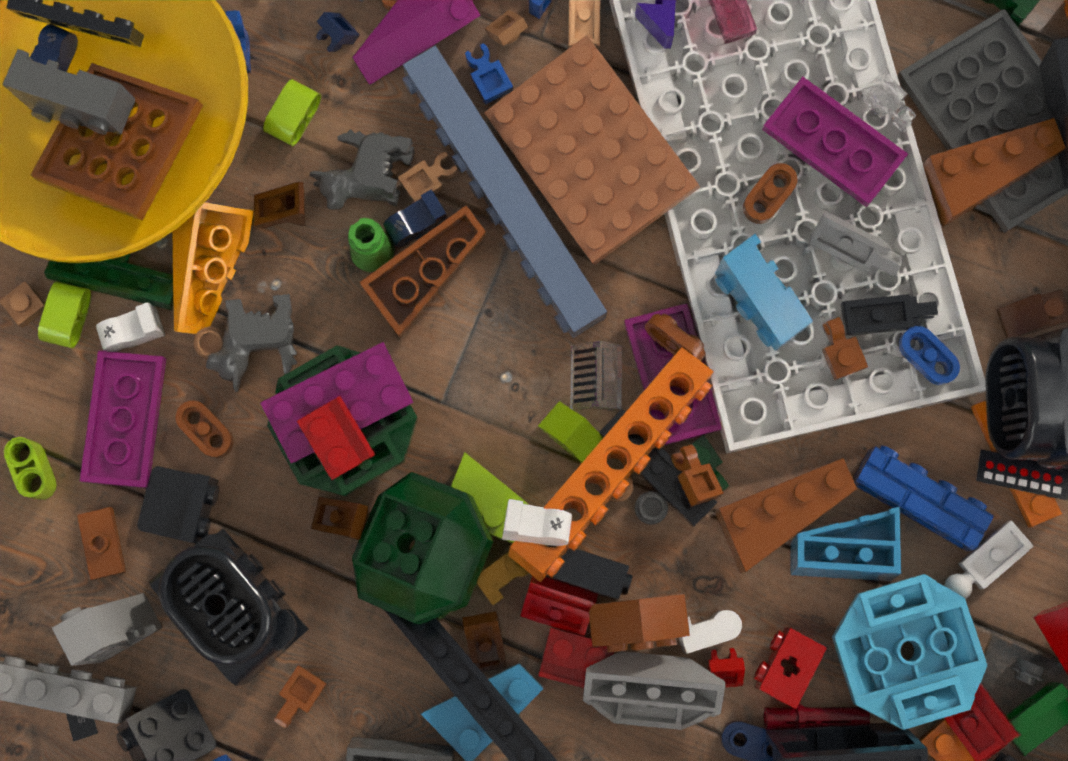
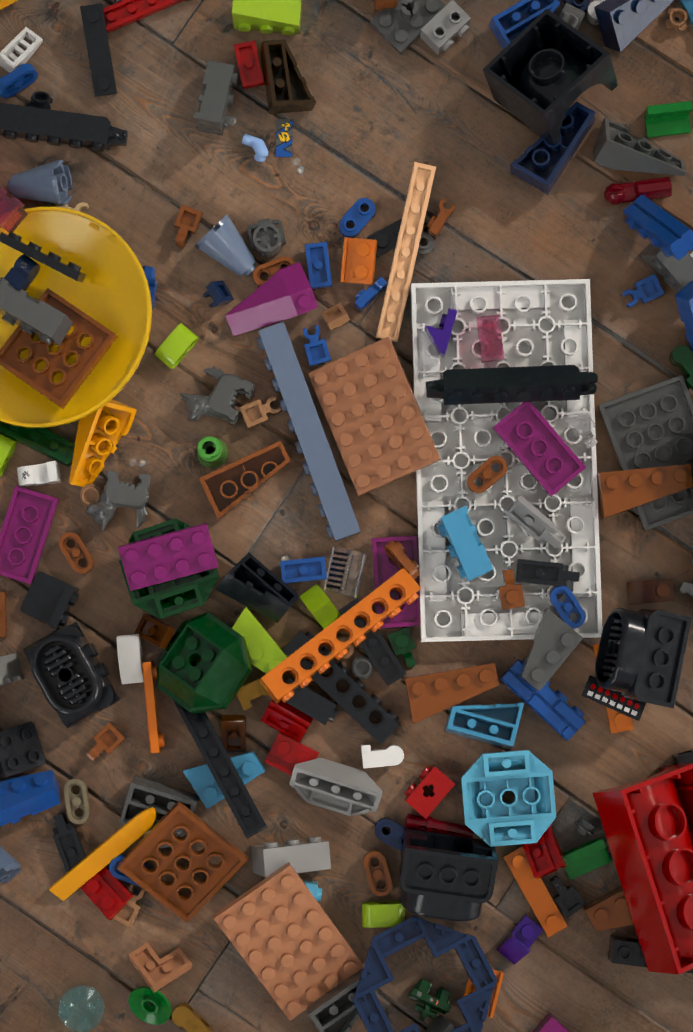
camera: 10 degrees right, 5 degrees up
(280, 206) = (155, 411): reddish brown slope -> none
(311, 565) = (130, 658): none -> white slope
(335, 437) = (163, 581): red plate -> none
(372, 675) = (156, 739): none -> orange plate
(415, 220) = (245, 439): dark blue leg -> none
(477, 424) = (258, 588): none -> black wedge
(536, 385) = (303, 570): none -> blue plate
(536, 524) = (280, 668): white leg -> none
(639, 623) = (336, 742): dark orange hinge -> none
(696, 479) = (395, 658): dark orange plate -> none
(707, 577) = (379, 731): none -> black brick
(729, 670) = (388, 785): red tile -> none
(777, 61) = (512, 384): none -> black hinge
(919, 421) = (549, 649): none -> dark grey wedge
(990, 559) = (577, 749): white plate -> none

